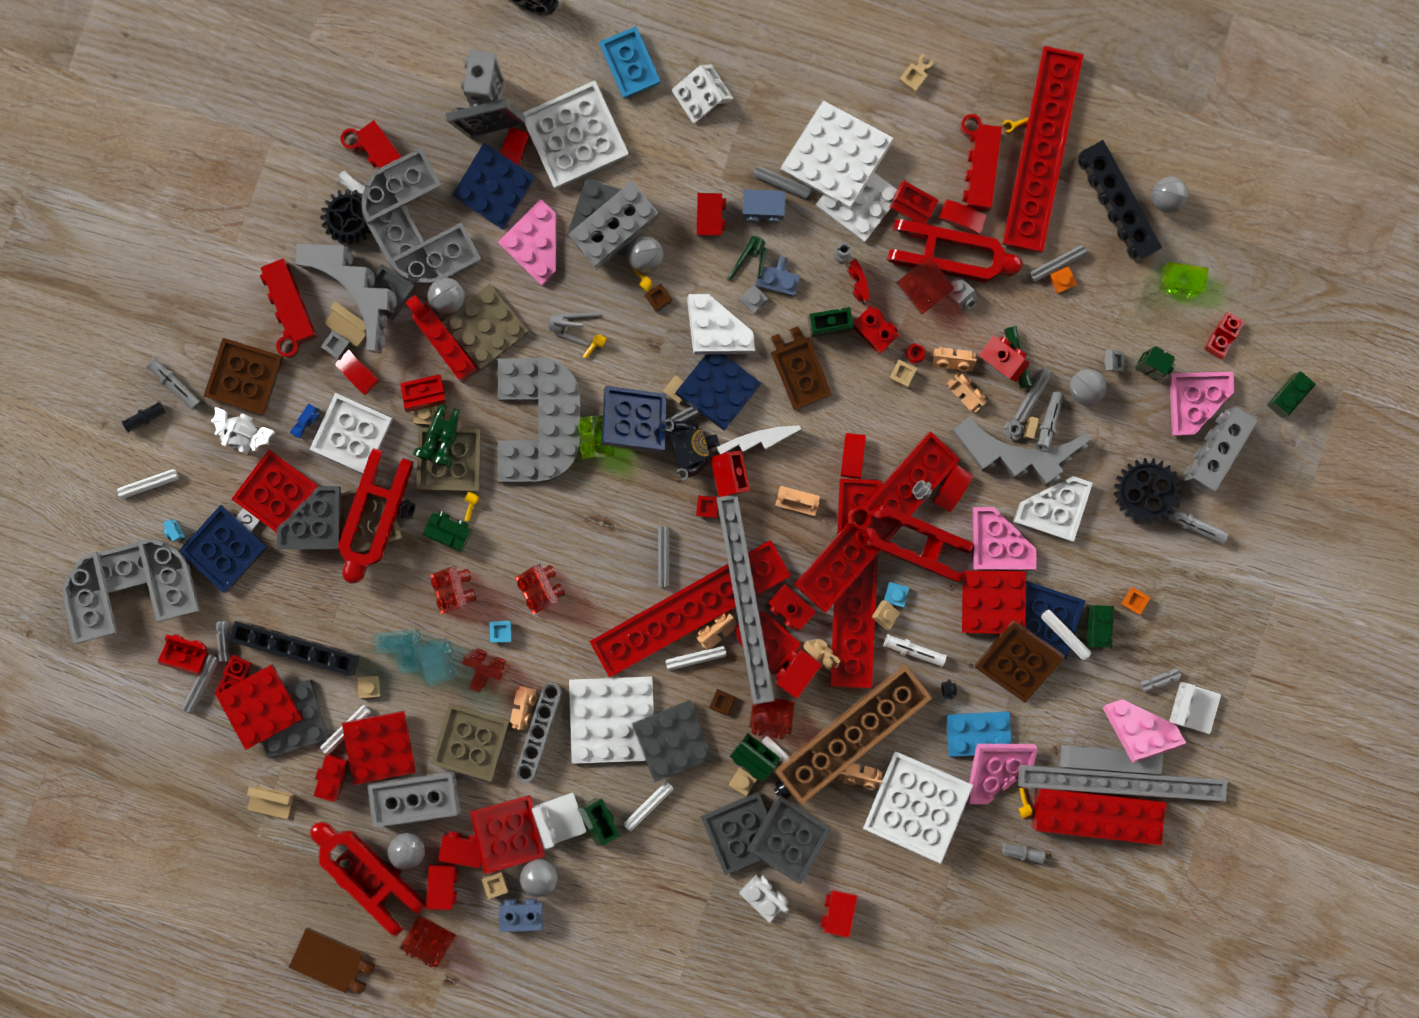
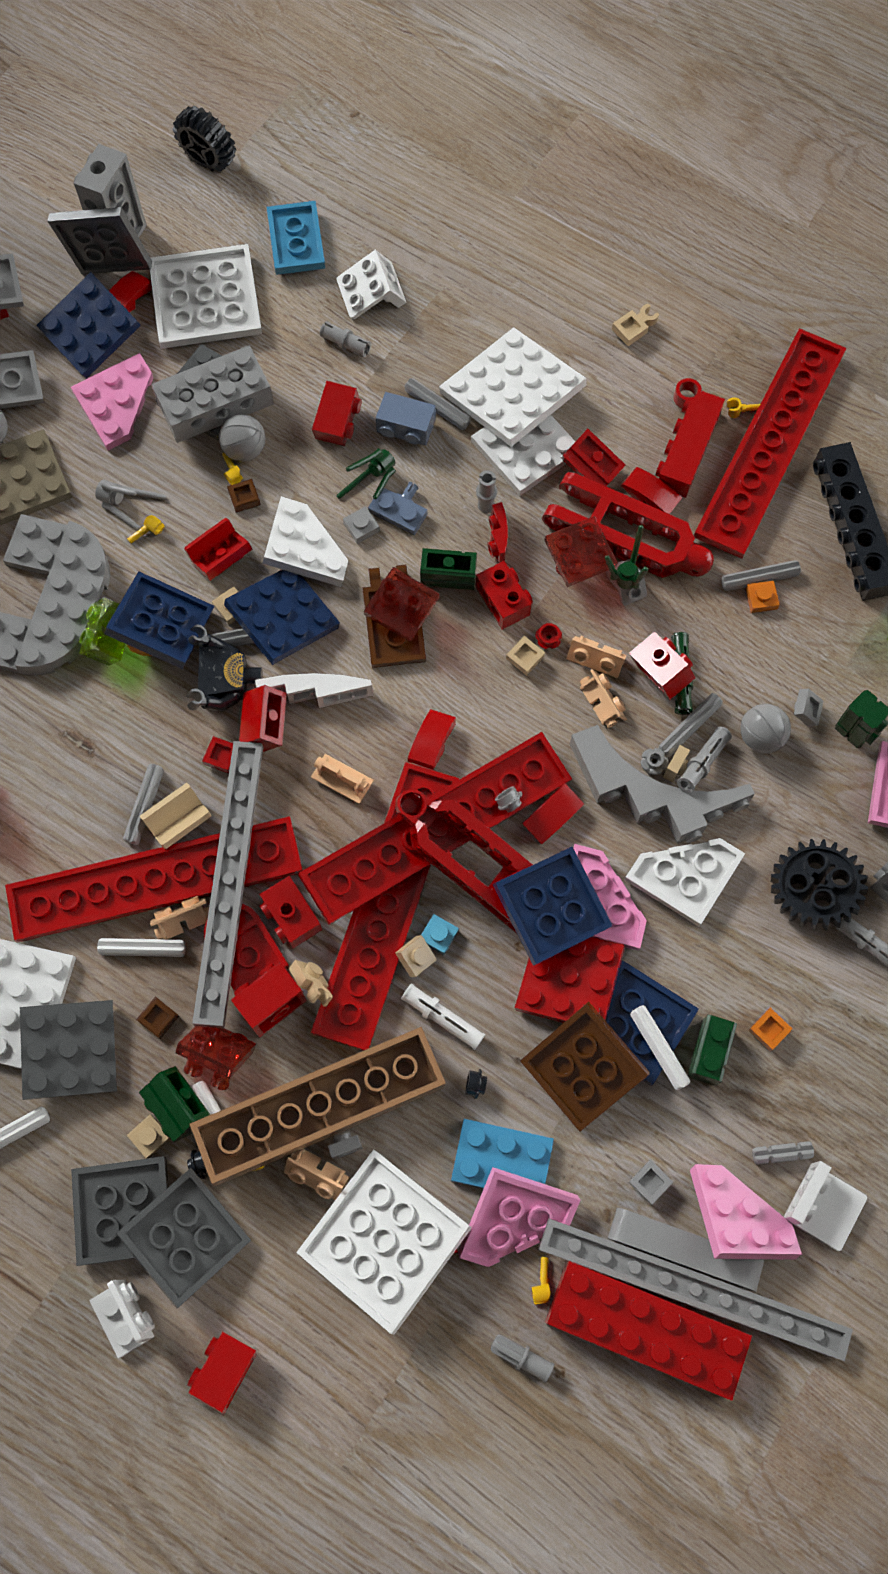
camera: 20 degrees right, 15 degrees down
(655, 350) = (217, 549): none -> red bracket
(691, 561) = (175, 816): none -> tan panel
(696, 144) = (345, 339): none -> light grey pin
(805, 360) = (401, 604): none -> clear red plate
(874, 753) = (344, 1145): none -> light grey plate
(964, 294) = (627, 573): none -> dark green plant
(972, 559) = (552, 905): none -> dark blue plate
(1079, 722) = (650, 1182): none -> light grey plate

